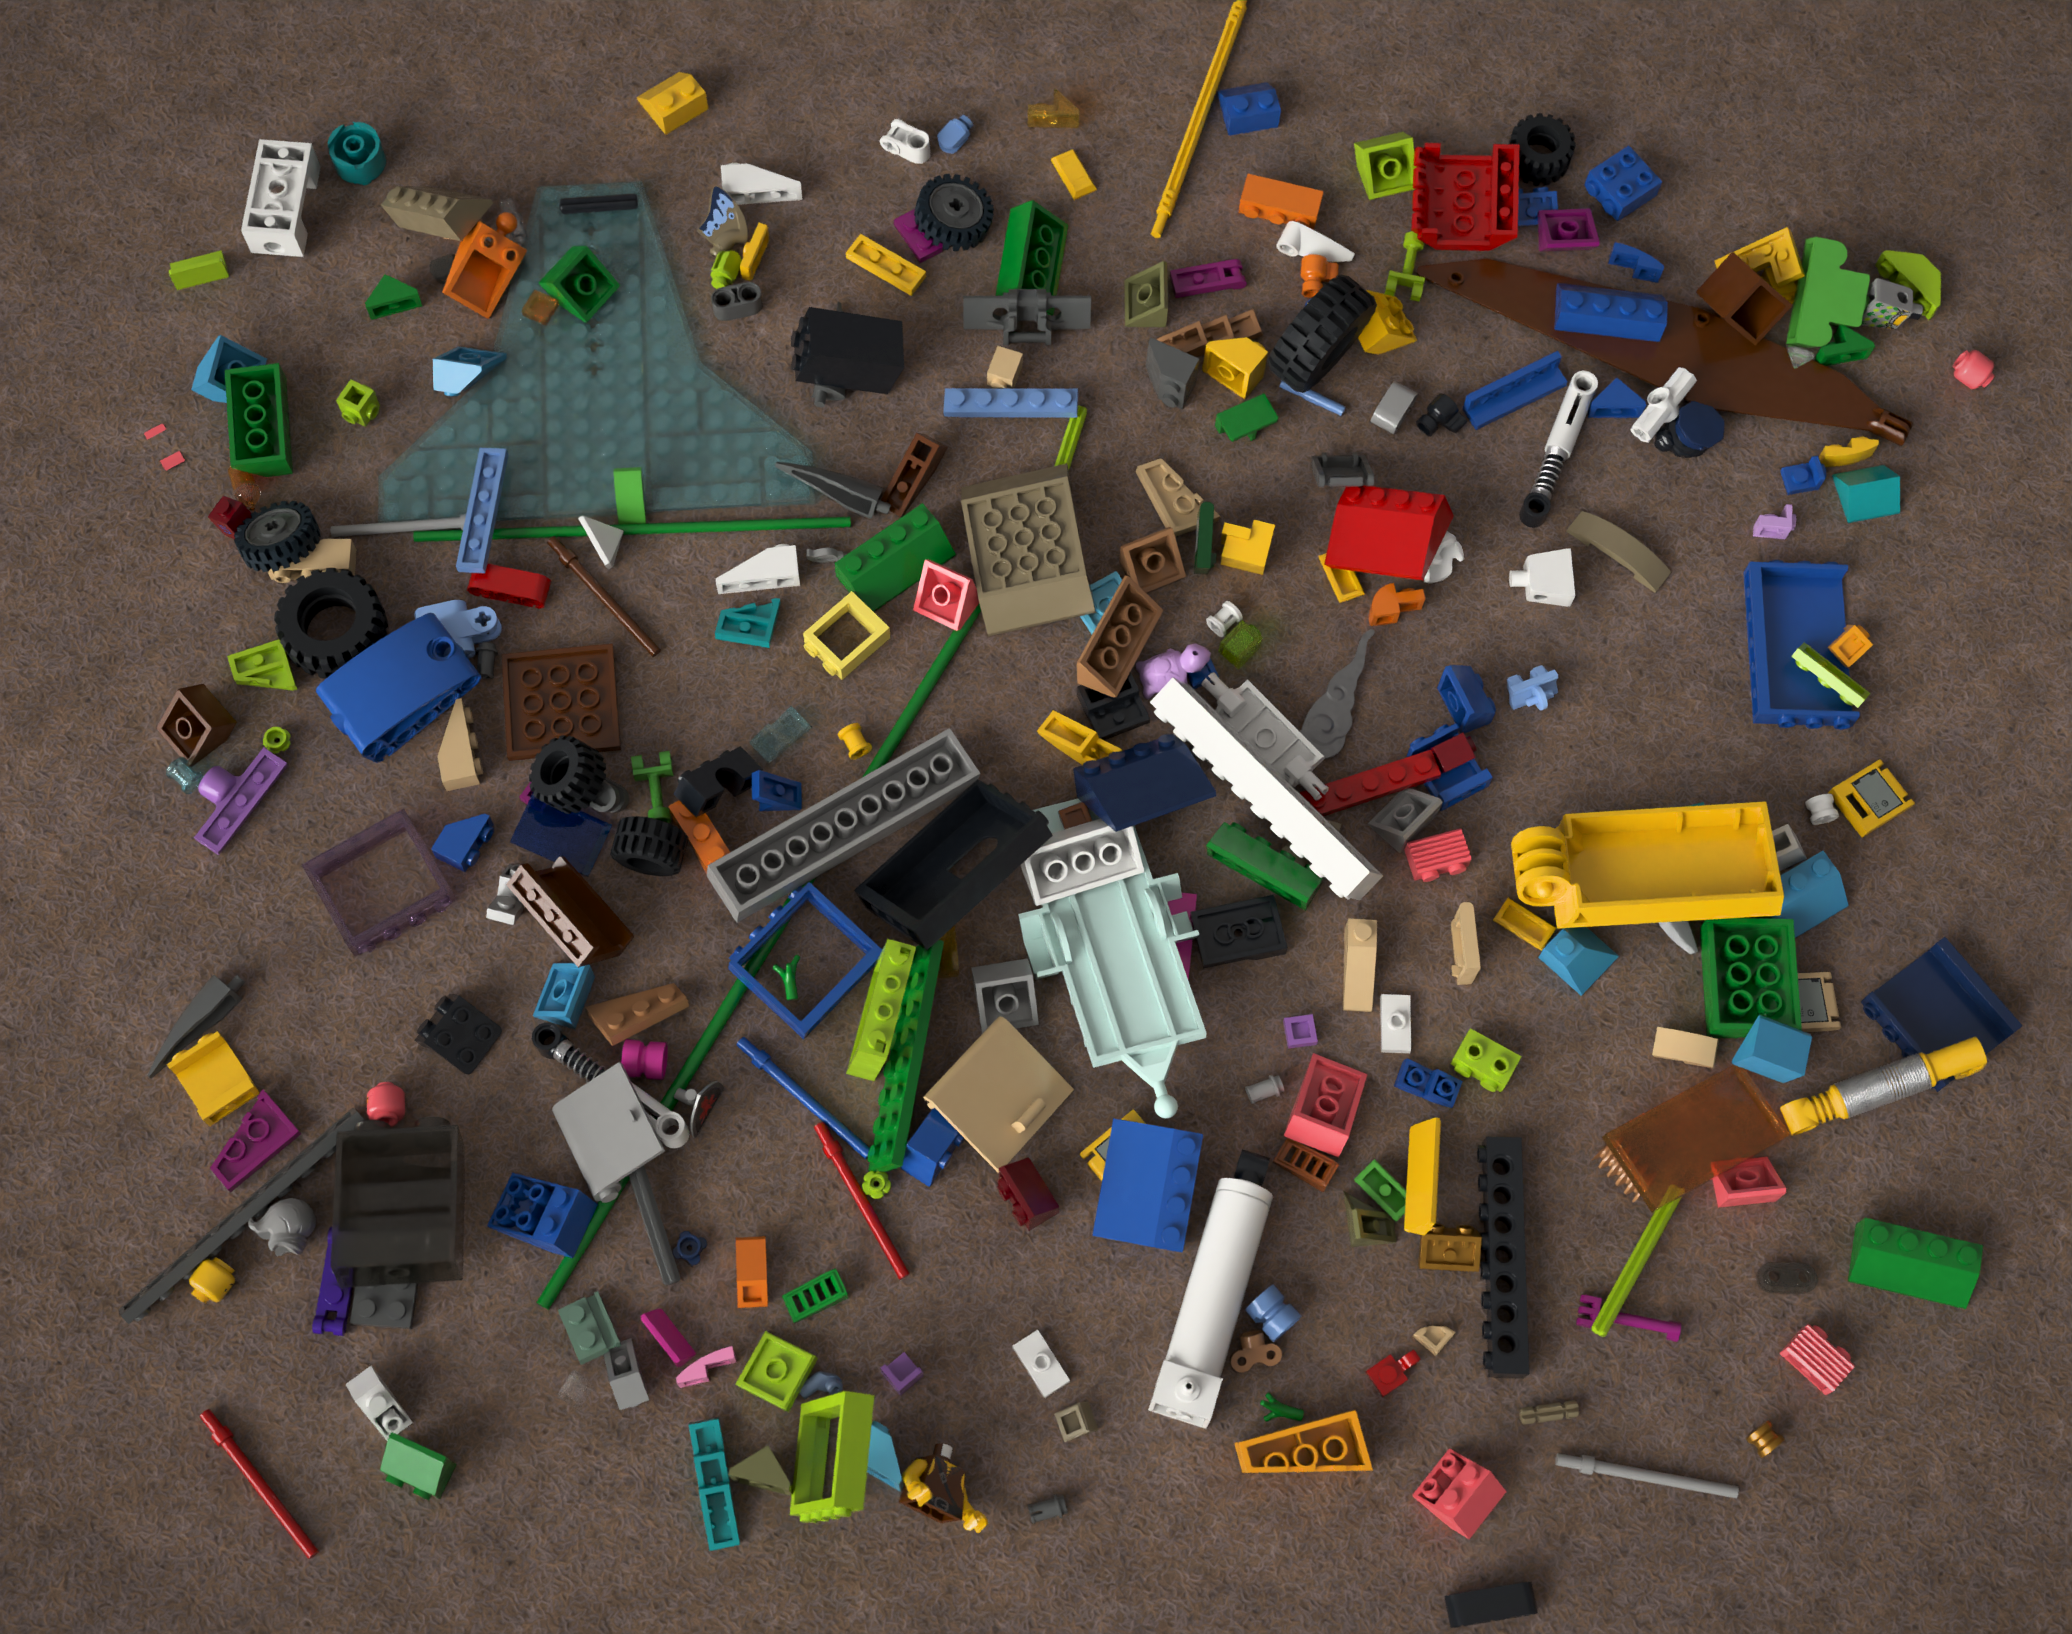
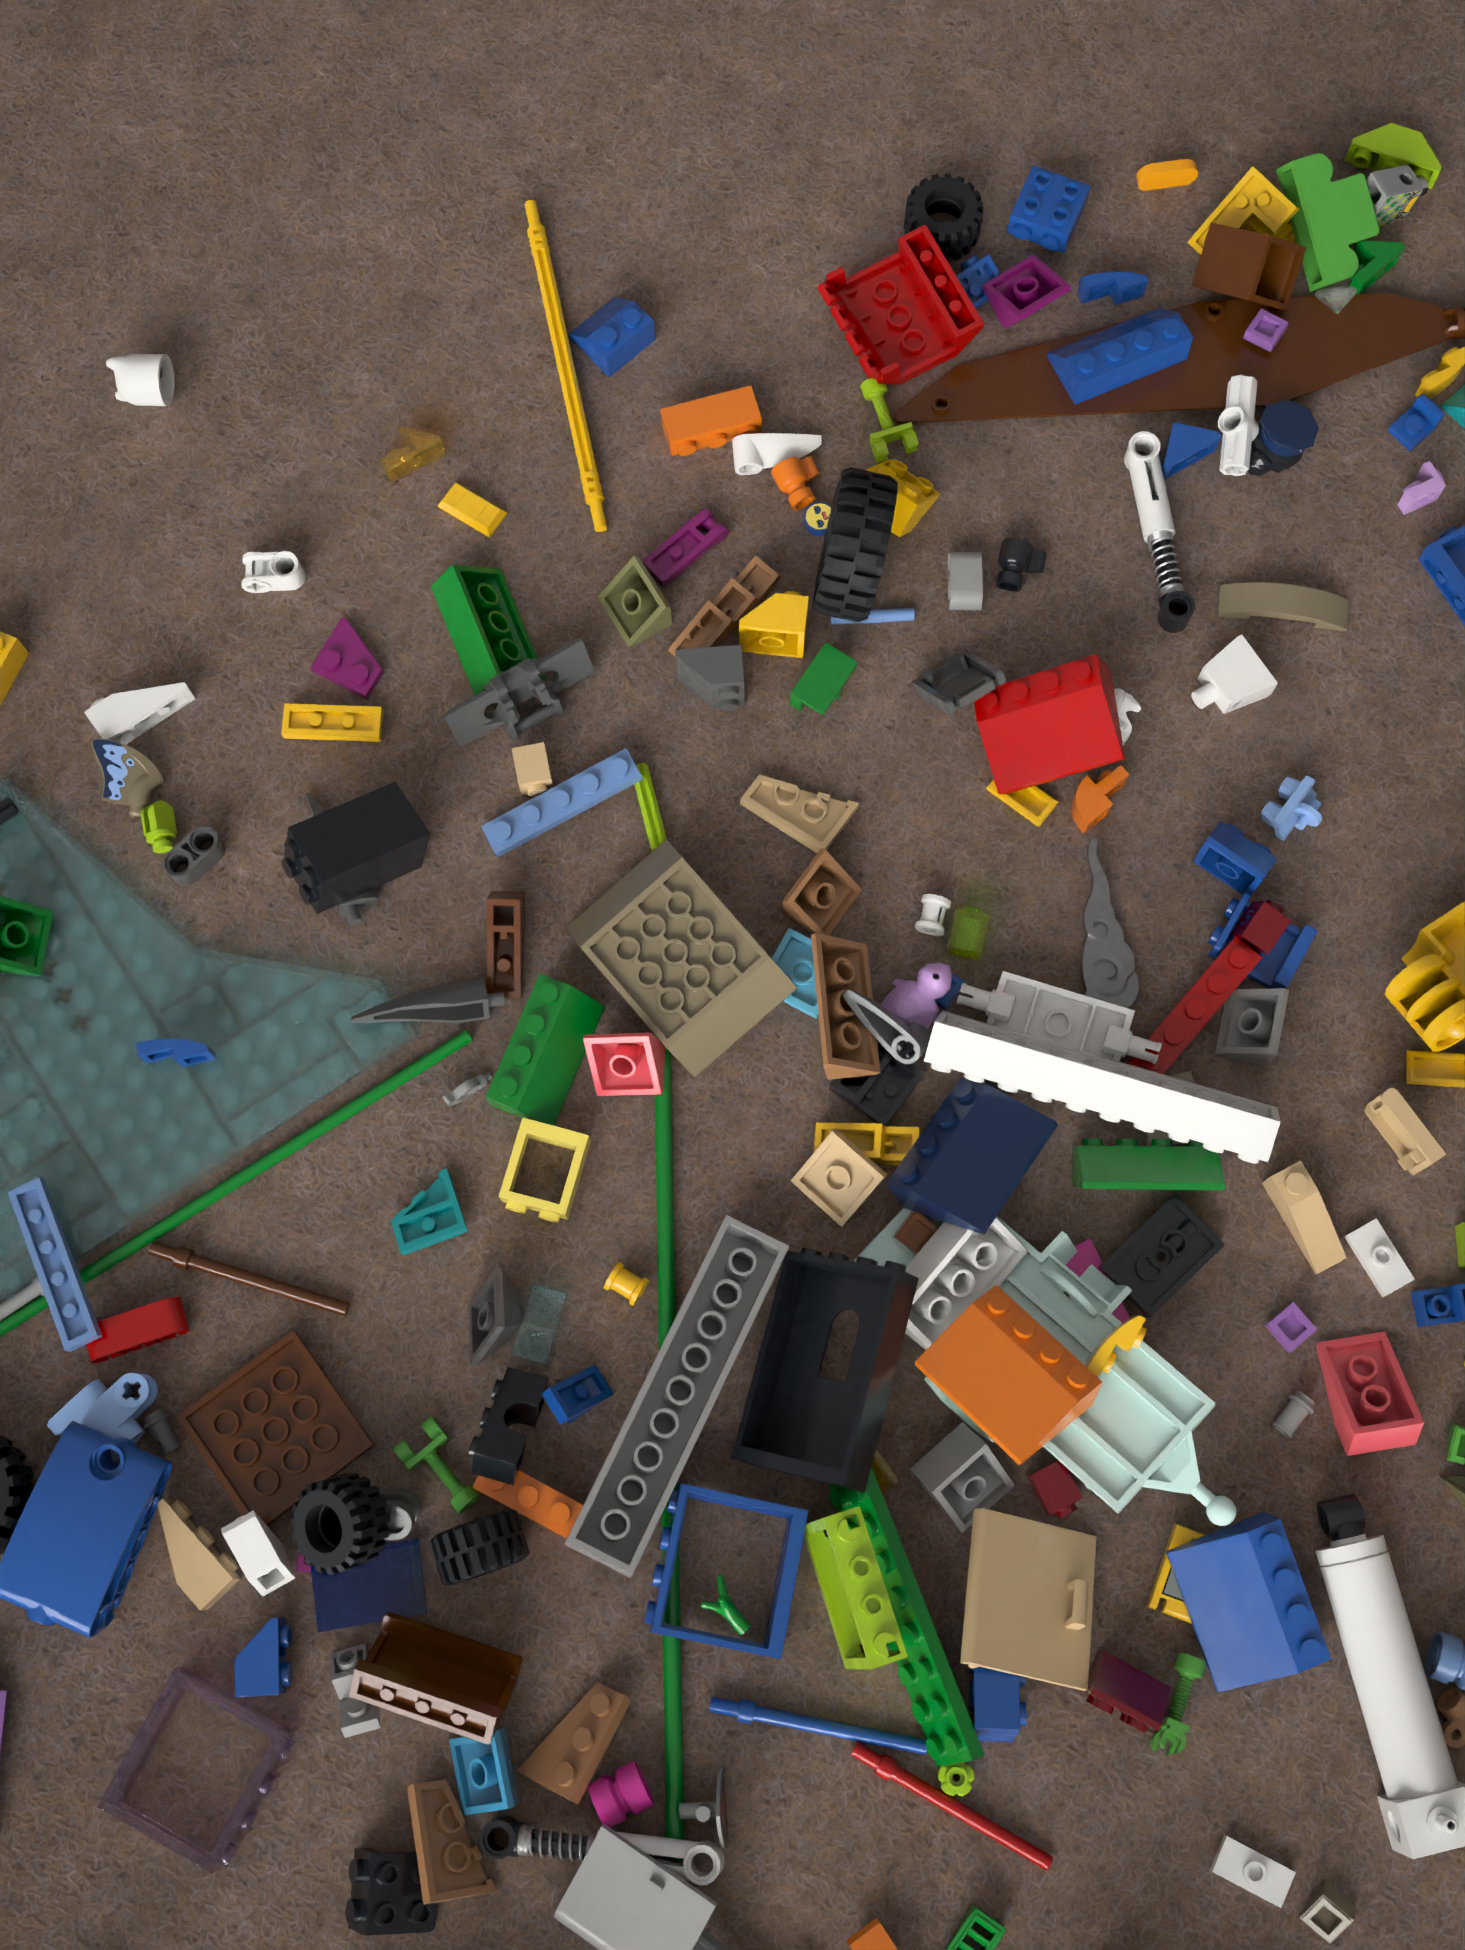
camera: 25 degrees left, 5 degrees up
(502, 767) = (258, 1553): none -> white slope
(506, 1025) = (444, 1852): none -> medium nougat wing
(604, 538) = (211, 1215): white slope -> none
(629, 495) = (210, 1149): bright green slope -> none
(652, 422) = (184, 1051): none -> blue slope
(752, 709) = (493, 1316): none -> flat silver slope
(754, 251) = (179, 788): yellow plate -> none
(767, 570) = (413, 1144): white slope -> none
(953, 212) = (372, 623): wheel -> none
(954, 134) = (318, 535): medium blue arm -> none
(1044, 753) = (838, 1177): none -> tan tile
(1045, 1234) = (1189, 1669): none -> bright green bar
(1064, 1039) = (1055, 1489): none -> dark red brick
(1076, 933) = (1009, 1374): none -> orange slope
(1140, 671) = (889, 1028): none -> dark grey piece
(1171, 954) = (1124, 1336): none -> yellow slope
(1203, 543) = (864, 841): dark green container -> none
(1247, 547) = (913, 824): yellow plate -> none
(1310, 1178) = (1418, 1470): dark orange slope -> none
(1386, 164) = (795, 319): lime slope -> none
(1438, 855) = (1311, 1046): coral brick -> none
(1514, 391) = (1076, 495): blue fence -> none
(1729, 205) = (1167, 174): none -> light orange tile
(1729, 350) = (1265, 330): none -> medium lavender plate

